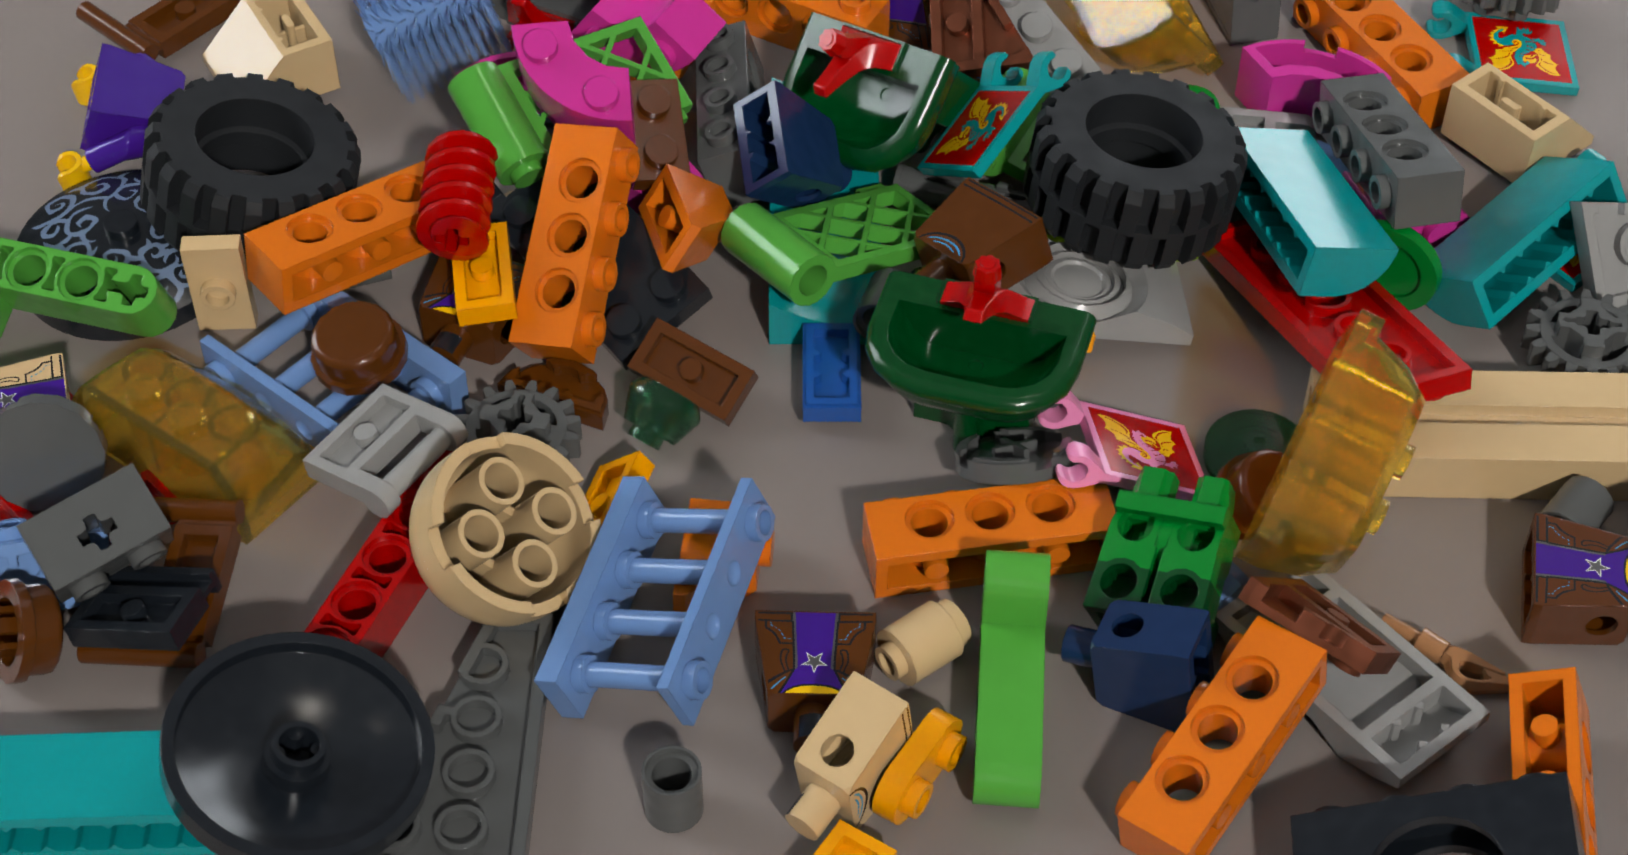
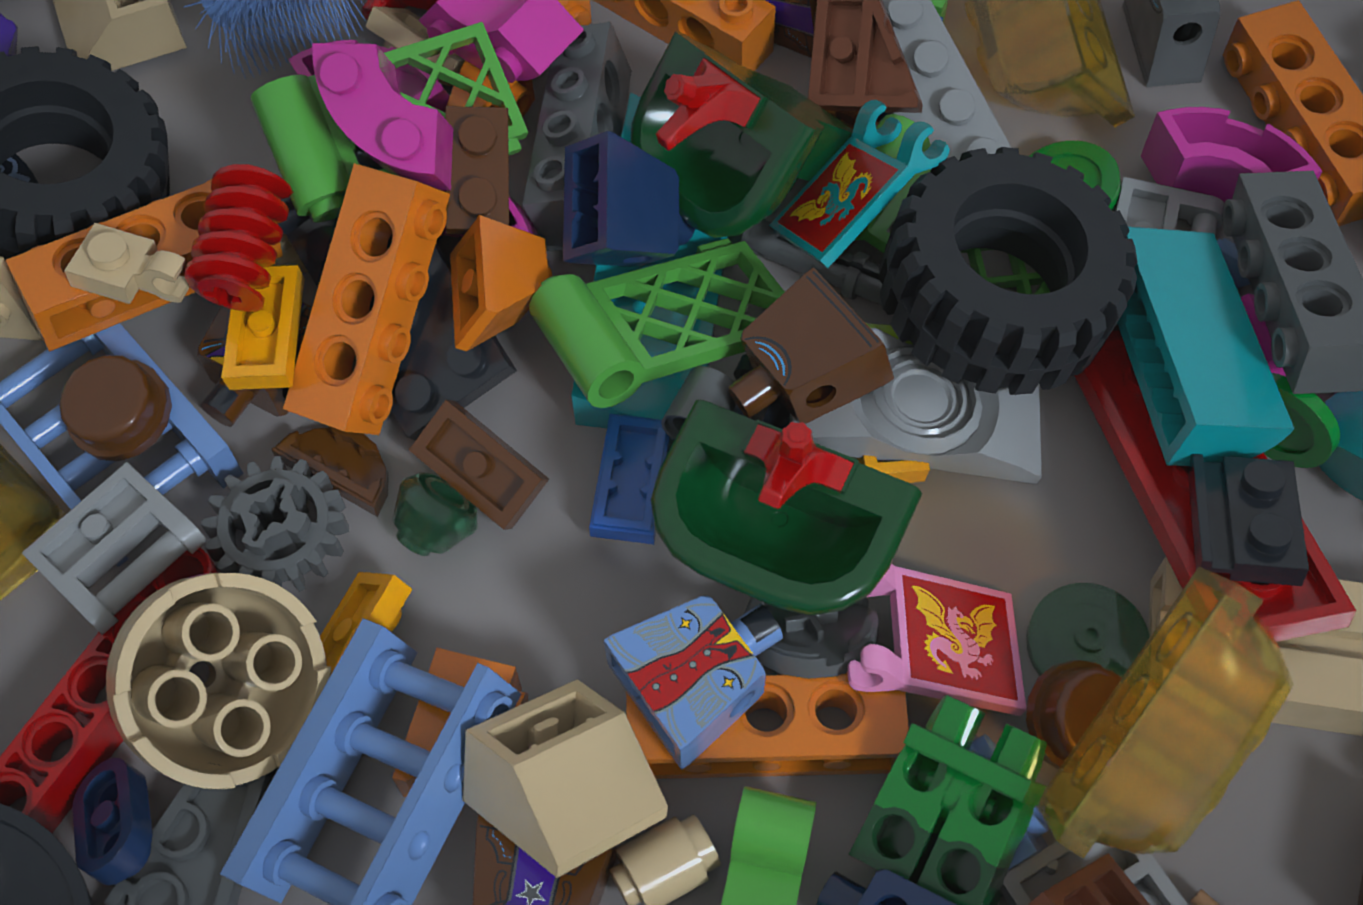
camera: 10 degrees right, 15 degrees up
(355, 226) = (122, 263): none -> tan plate
(426, 659) = (112, 822): none -> dark blue plate
(824, 564) = (561, 777): none -> tan slope
(921, 480) = (693, 671): none -> torso
(1380, 296) = (1248, 520): none -> black plate

